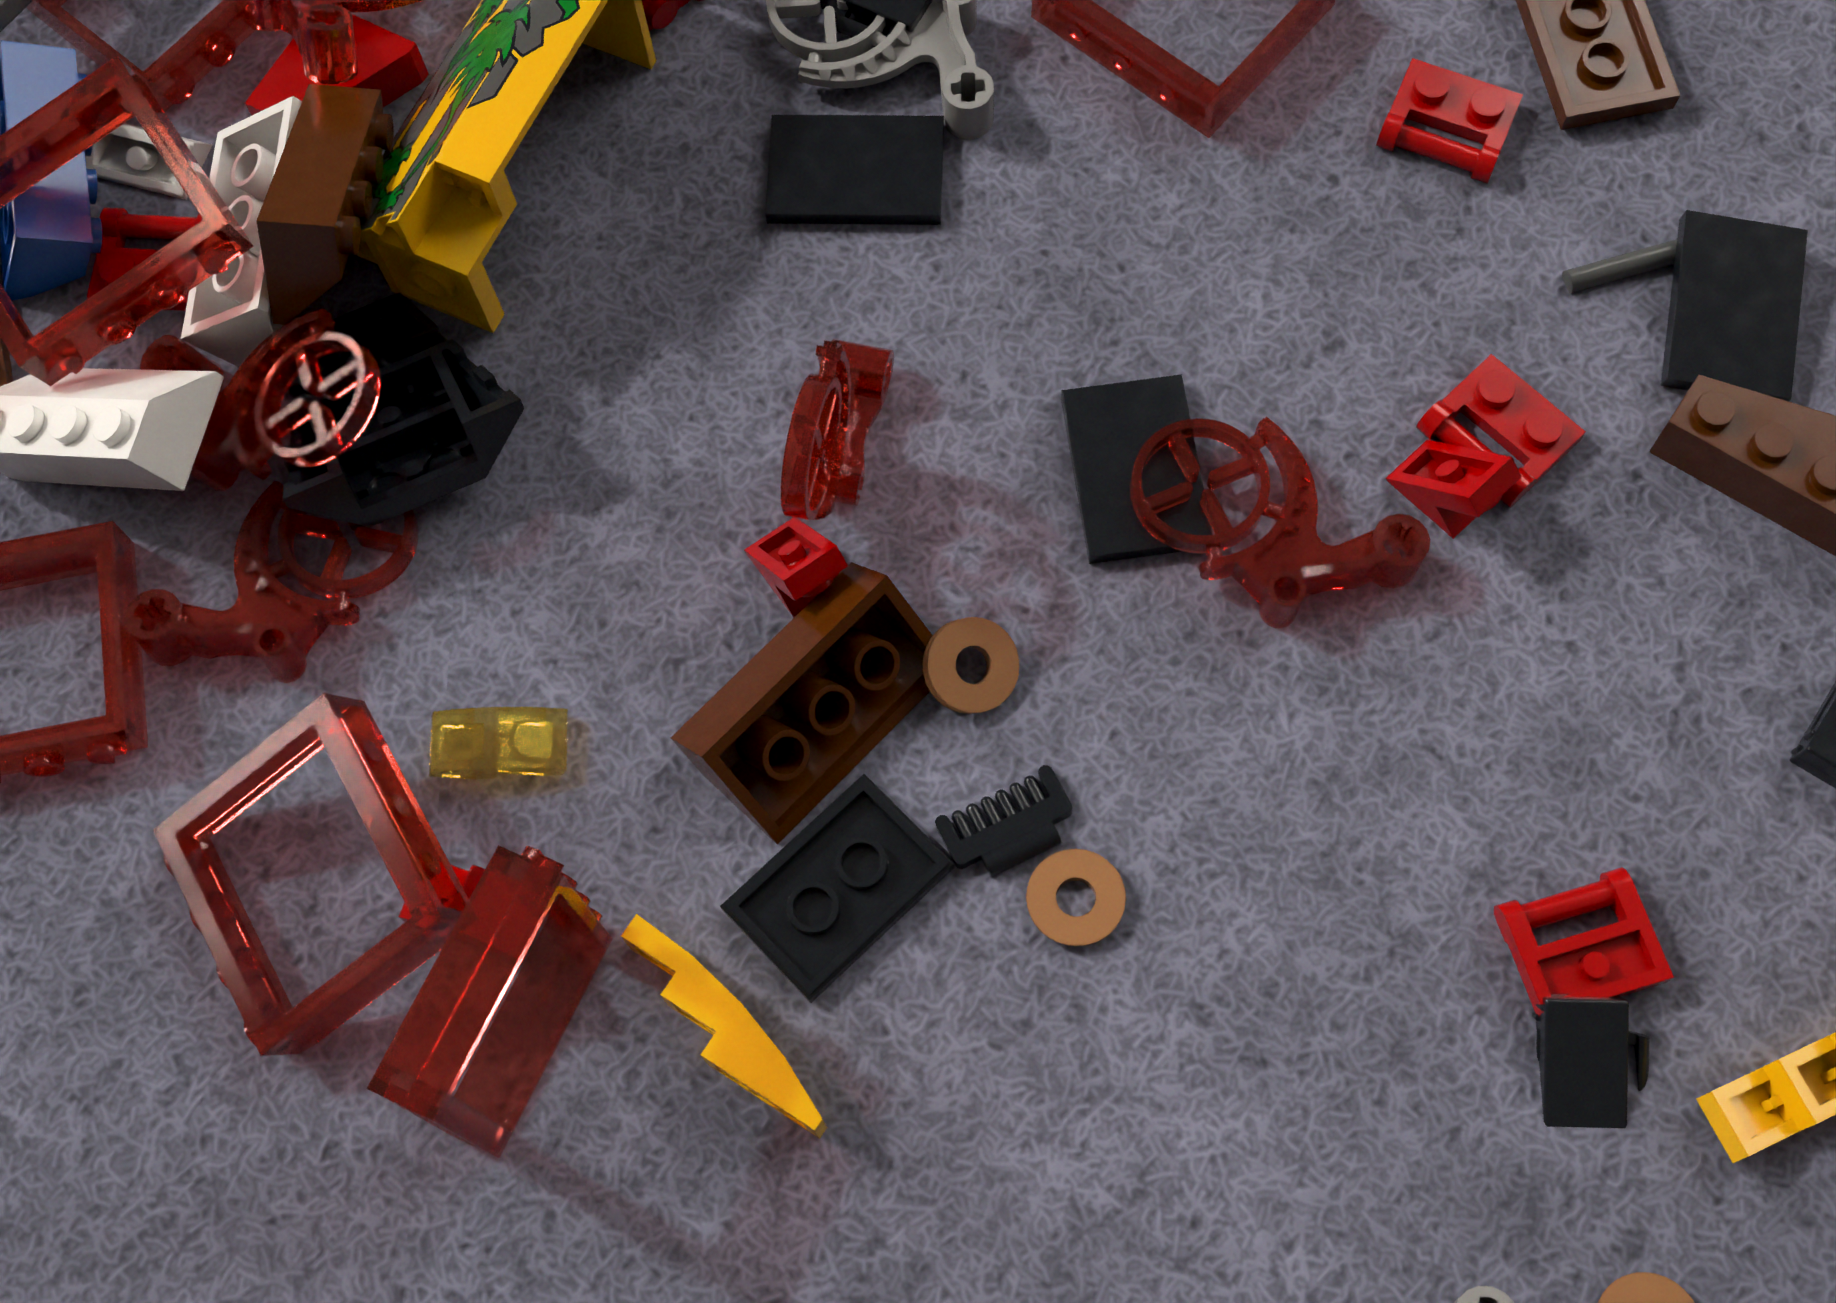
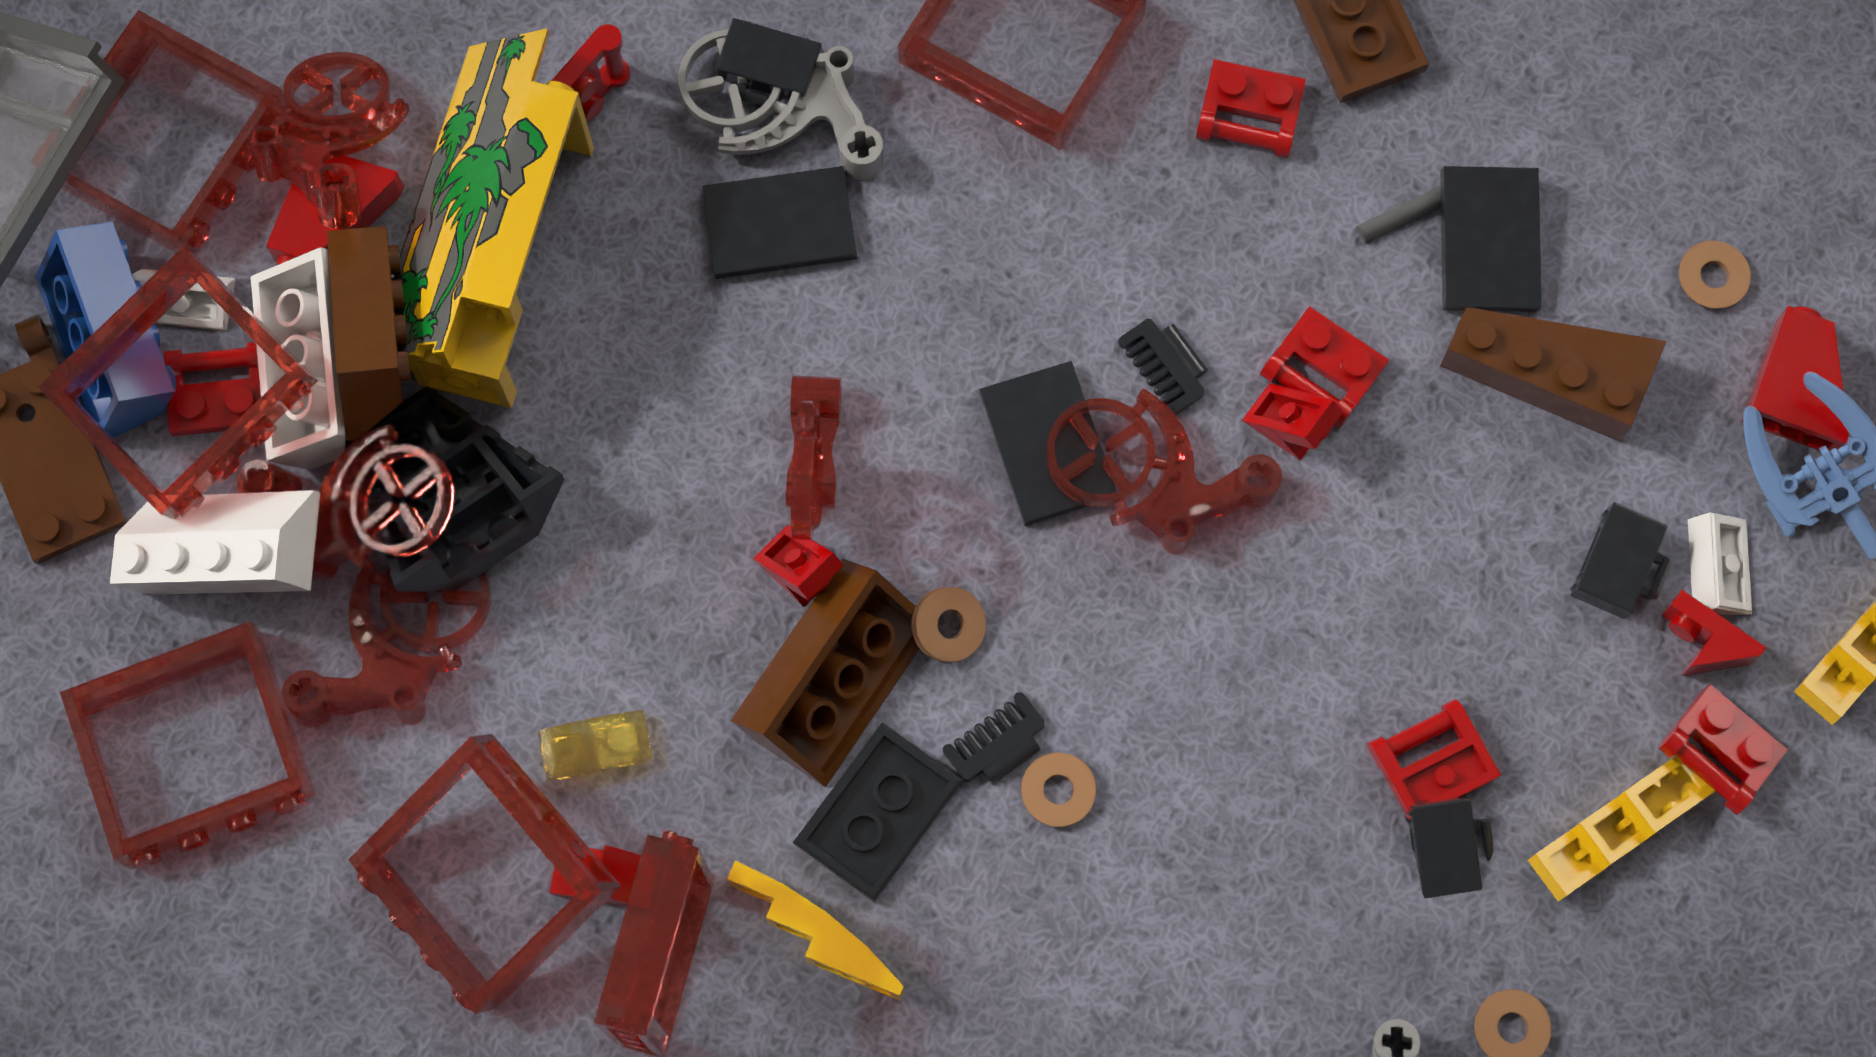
camera: 15 degrees left, 5 degrees up
(1313, 392) = (1177, 359): none -> black piece

